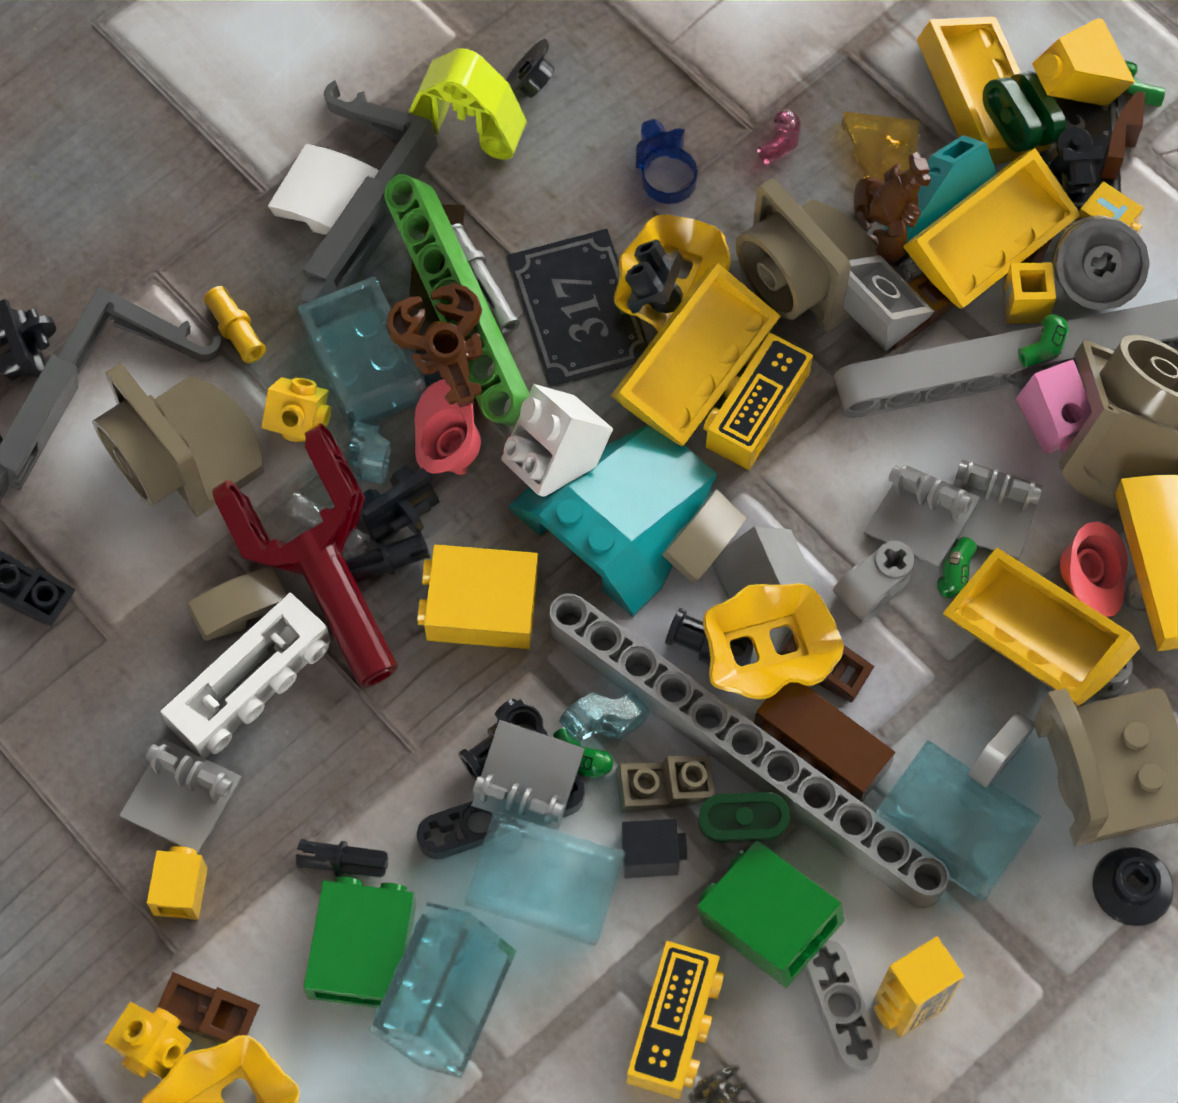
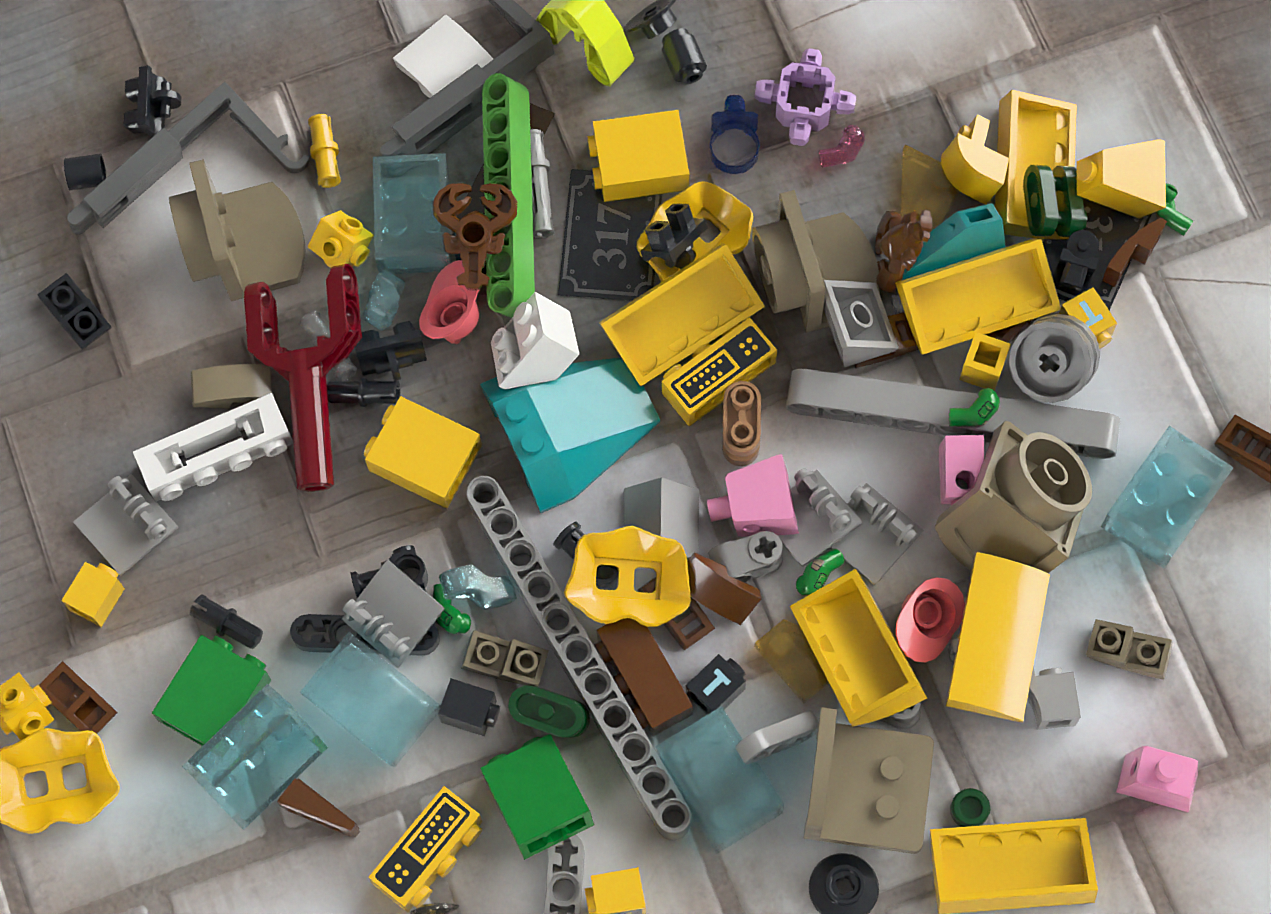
camera: 25 degrees right, 5 degrees up
(528, 1022) = (307, 803): none -> reddish brown slope
(577, 101) = (683, 56): none -> black brick
(577, 214) = (639, 155): none -> yellow brick
(704, 536) = (623, 469): dark tan slope -> none
(712, 76) = (808, 73): none -> lavender piece
(807, 444) = (741, 423): none -> medium nougat brick
(862, 515) = (757, 499): none -> bright pink torso
(868, 622) = (720, 592): none -> reddish brown slope
(907, 722) = (716, 684): none -> black brick
(923, 105) = (973, 166): none -> yellow brick
(972, 667) = (792, 659): none -> clear yellow wing

